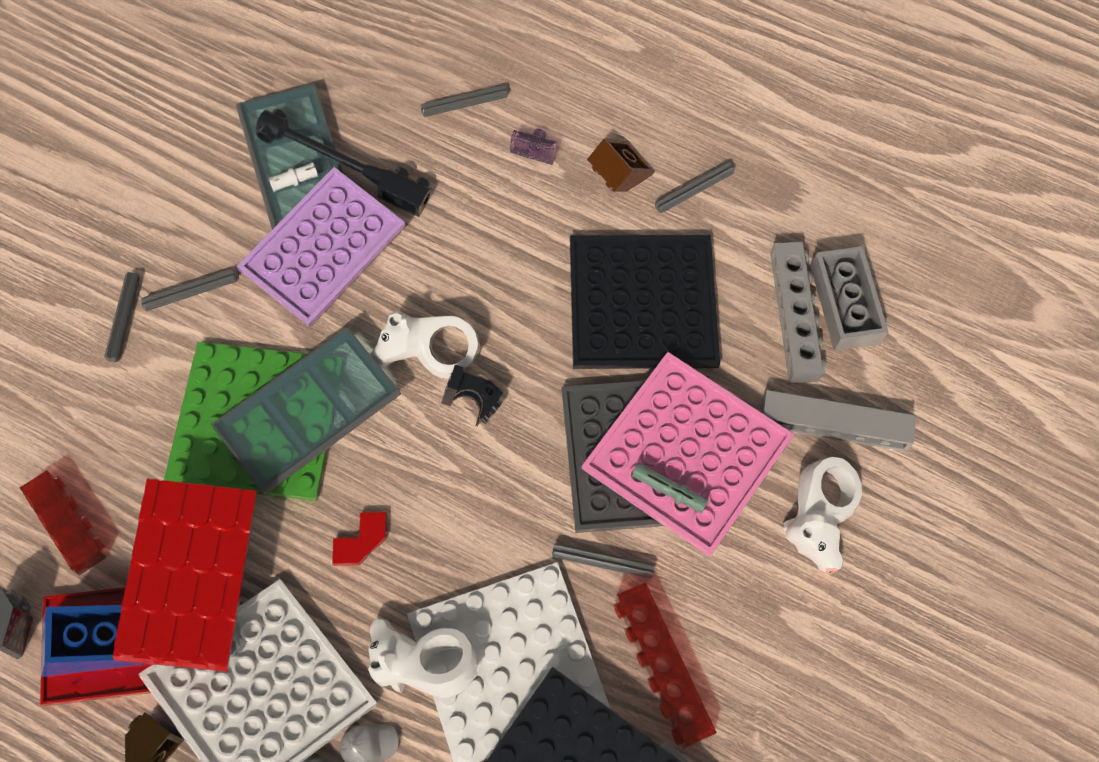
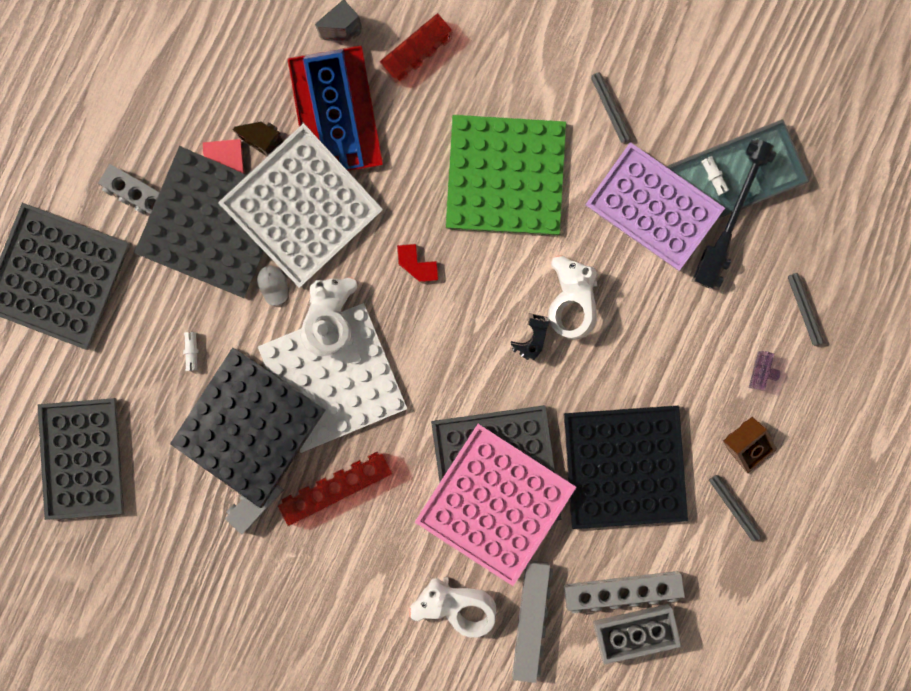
camera: 90 degrees right, 20 degrees up
(122, 317) = (584, 60): dark grey axle -> none
(185, 576) = (373, 144): red piece -> none
(305, 410) = (511, 212): clear light blue door -> none
(603, 560) = (411, 442): dark grey axle -> none
(670, 488) = (451, 512): sand green pin -> none

